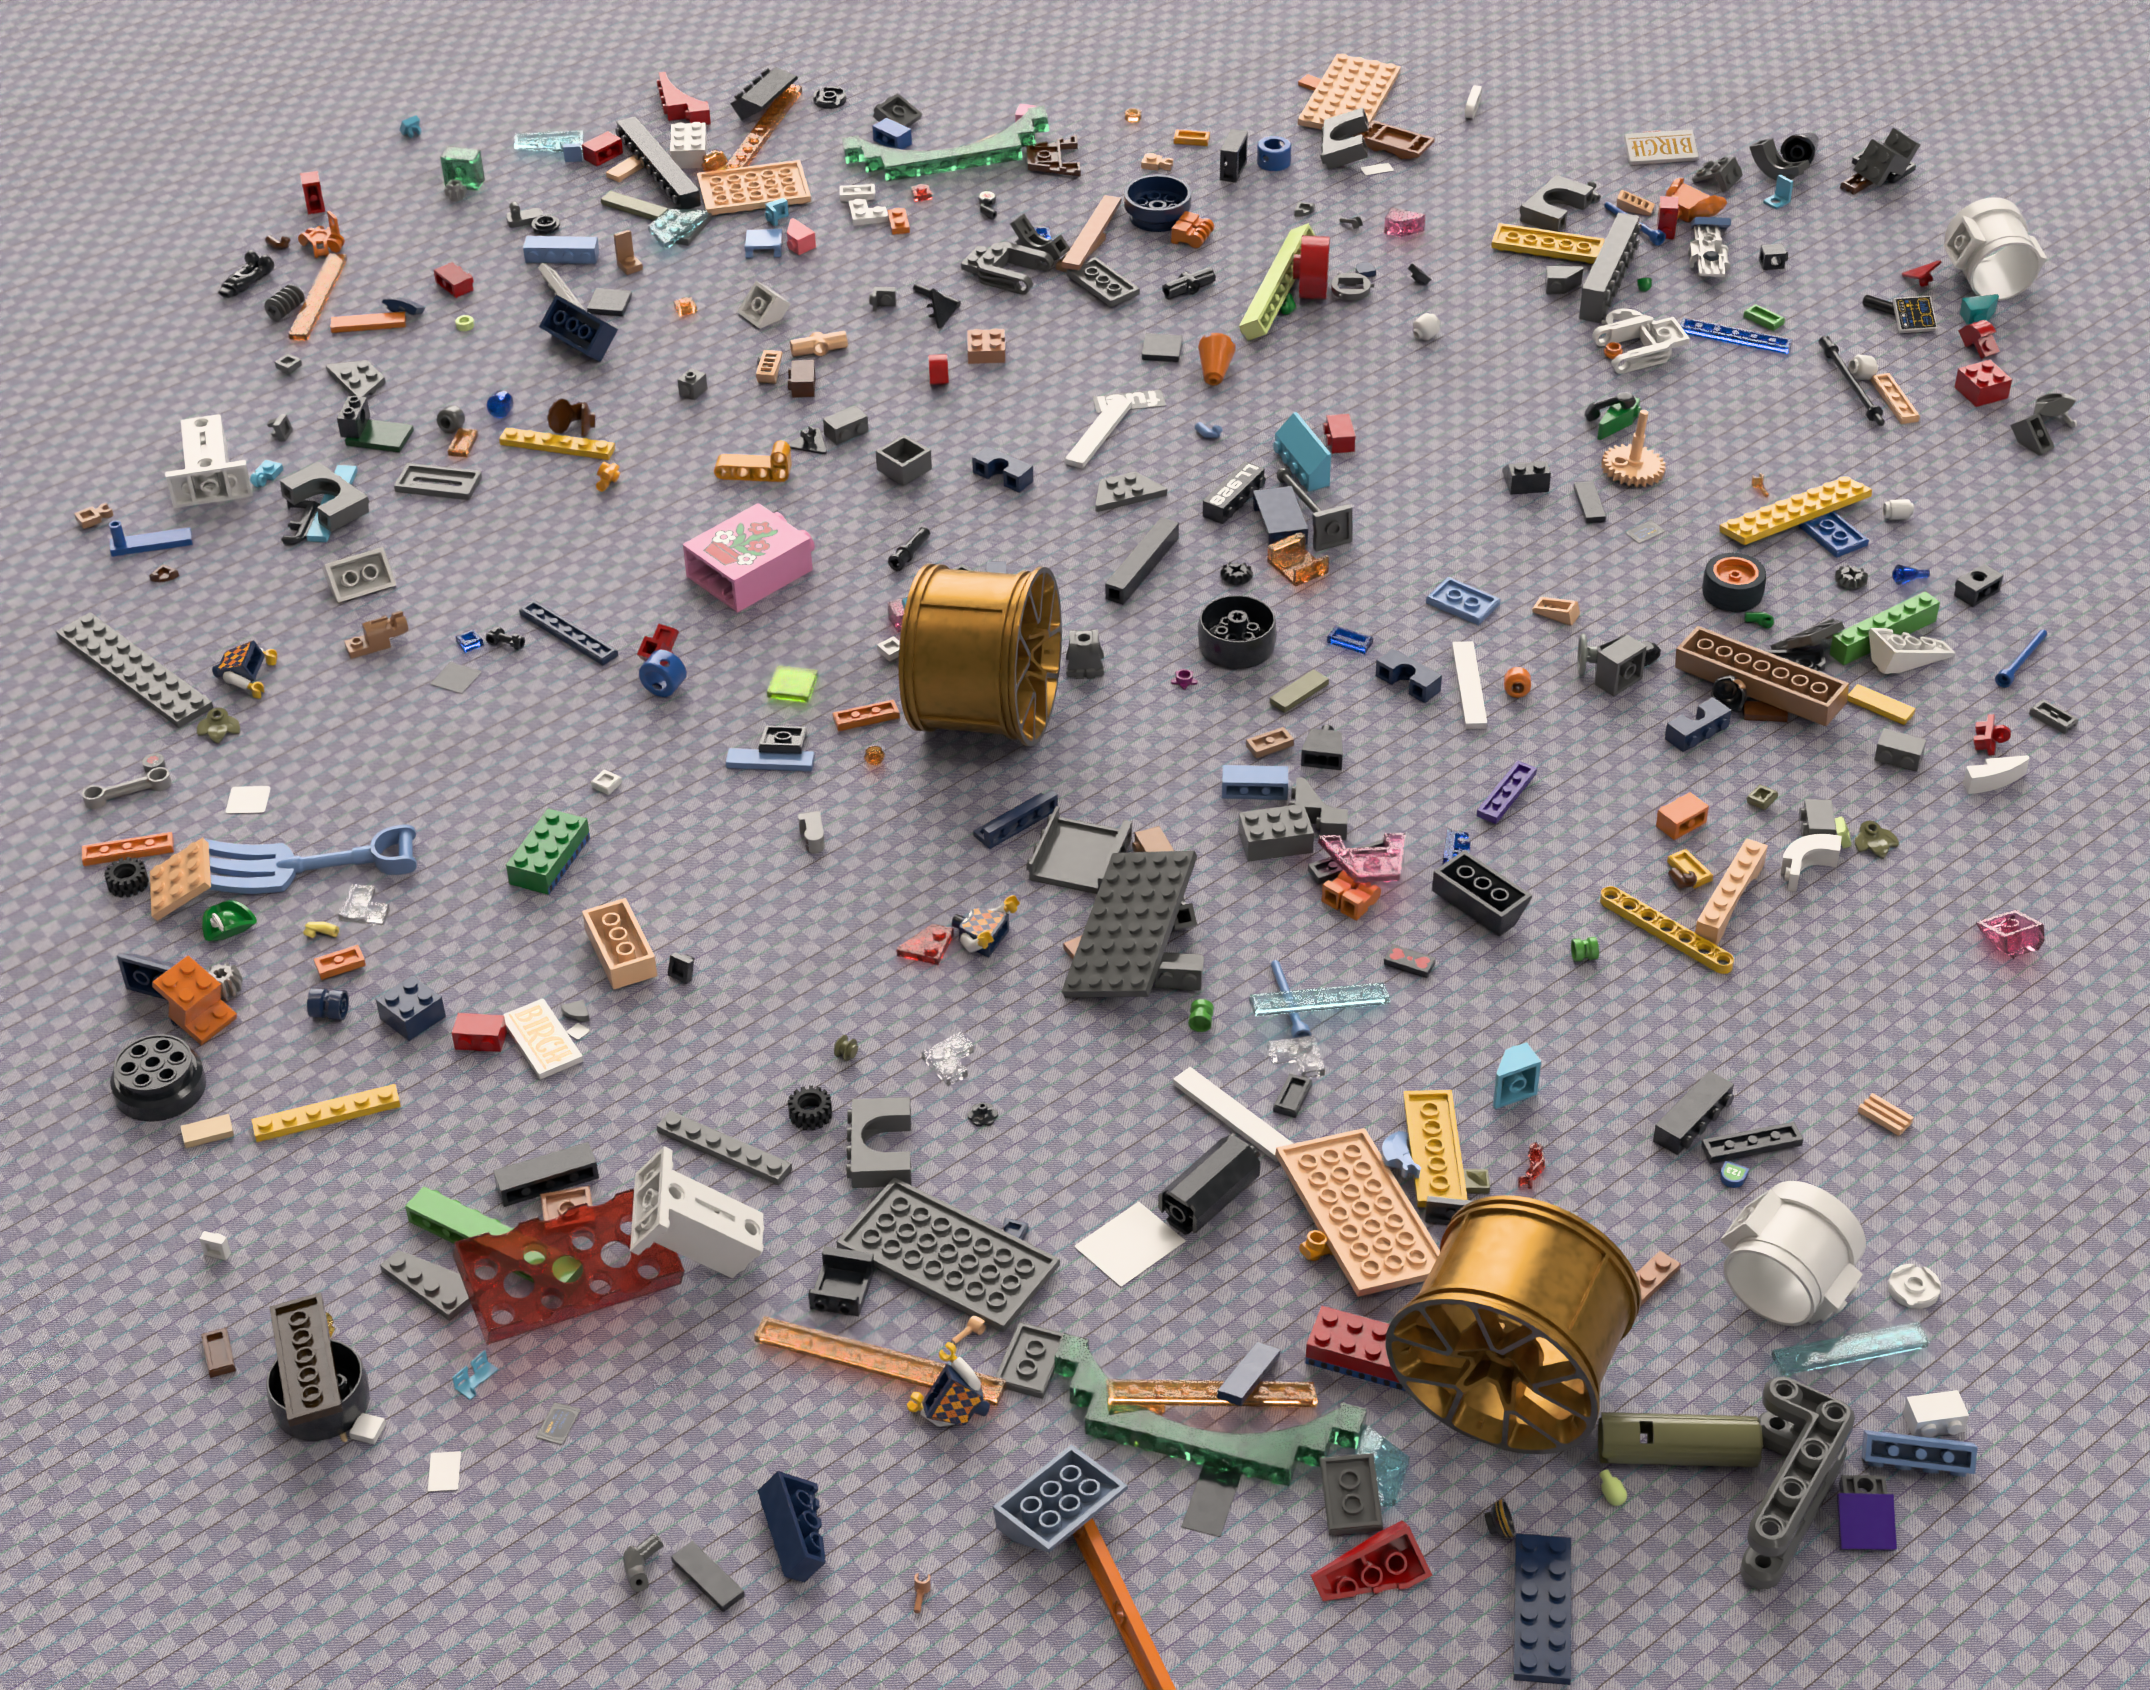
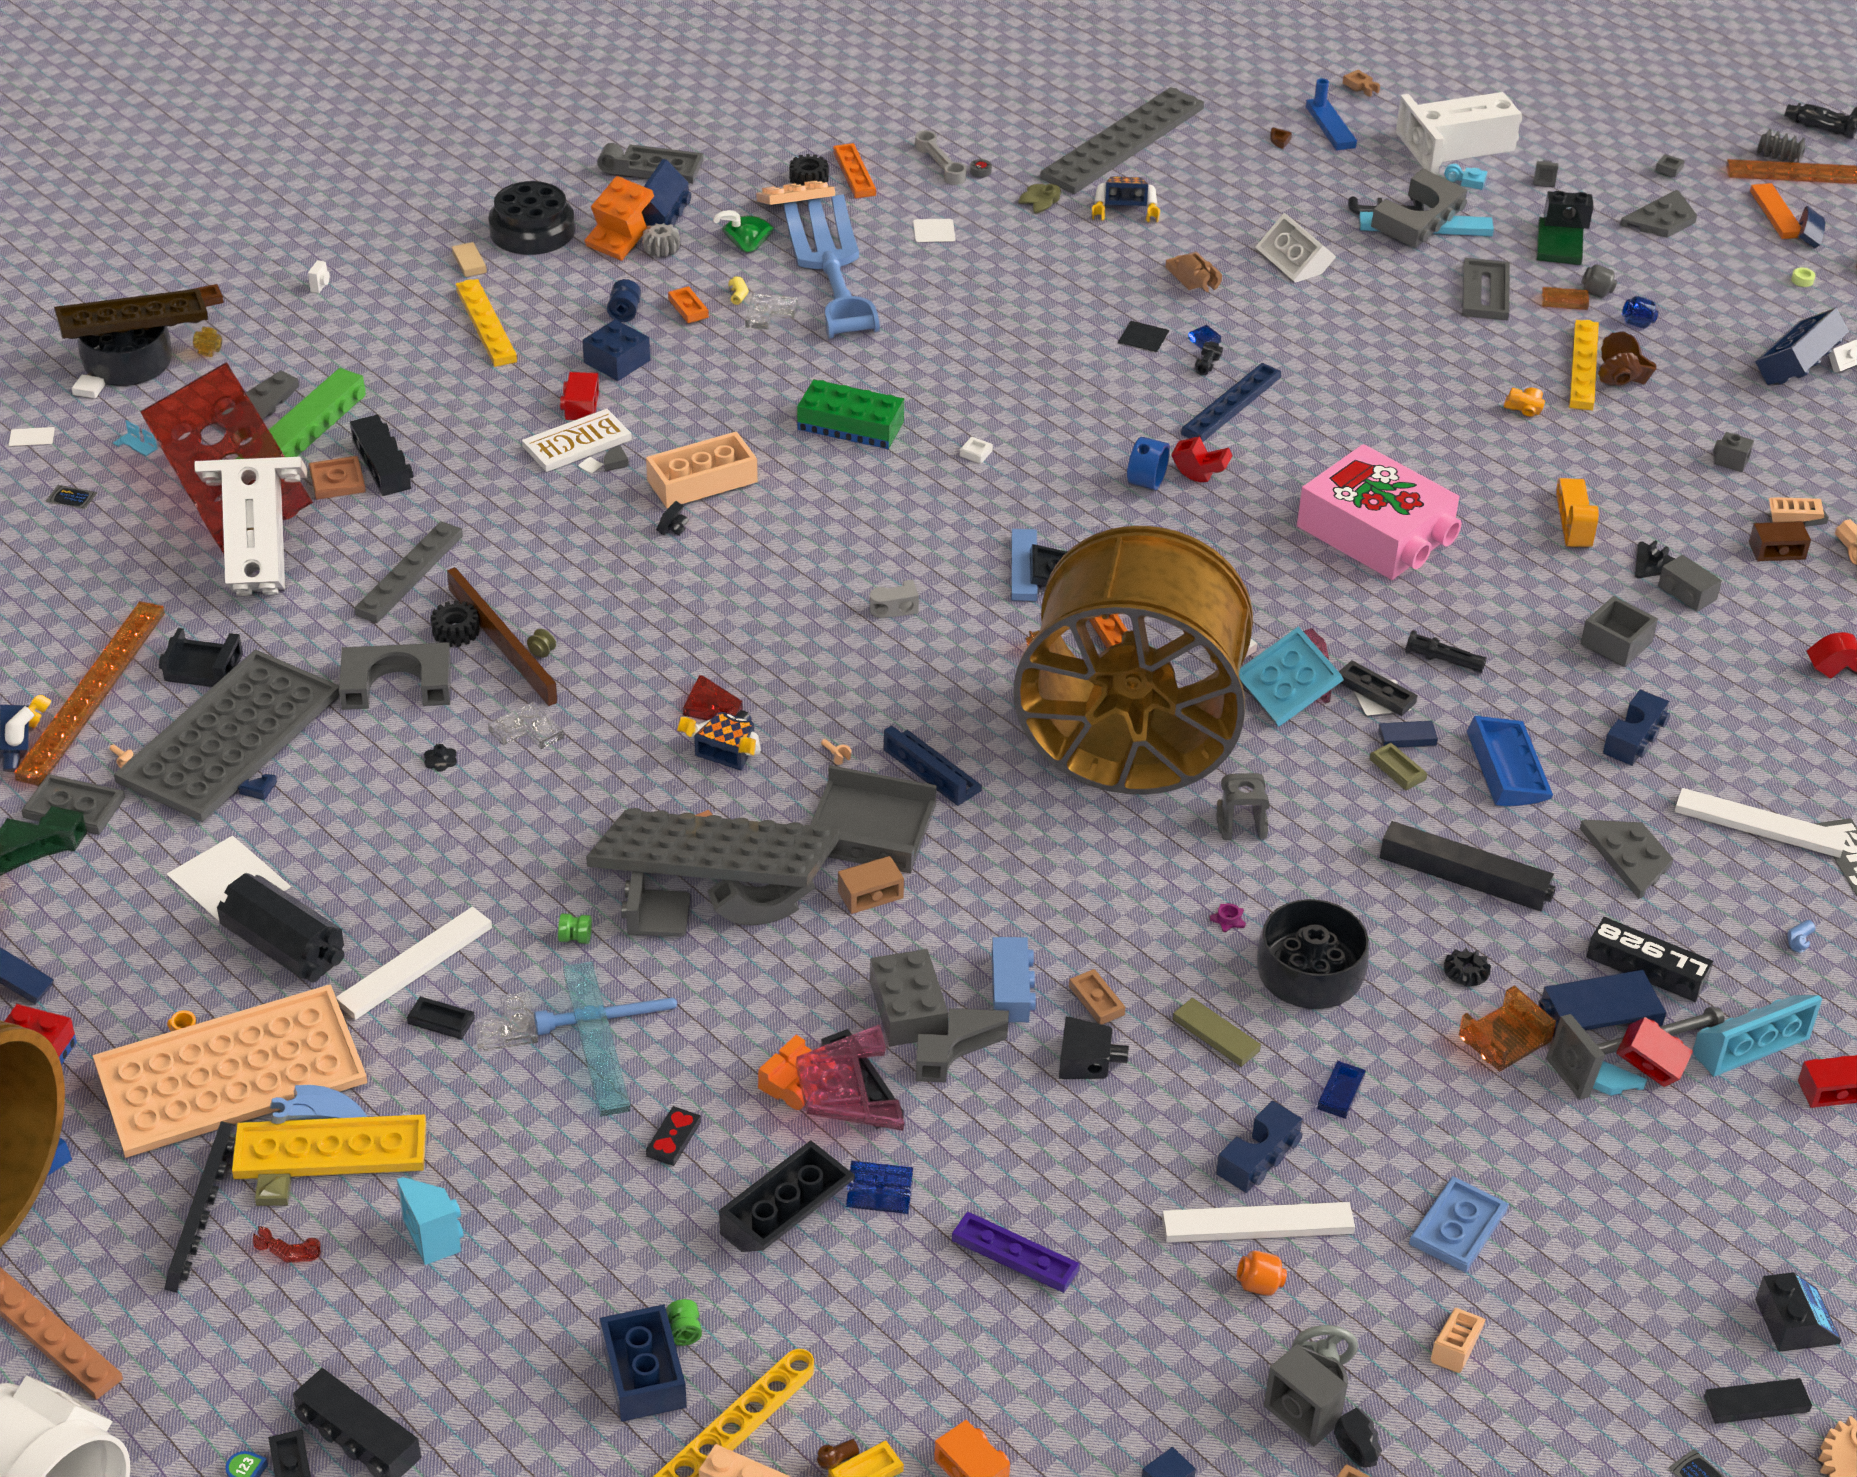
camera: 85 degrees right, 0 degrees up
(67, 979) = (643, 160): none -> dark grey hinge
(833, 1073) = (504, 638): none -> reddish brown tile
(999, 870) = (839, 751): none -> light nougat hand
(1031, 532) = (1508, 761): none -> blue slope
(1326, 494) = (1654, 1051): none -> brick
(1627, 963) = (643, 1362): none -> dark blue brick

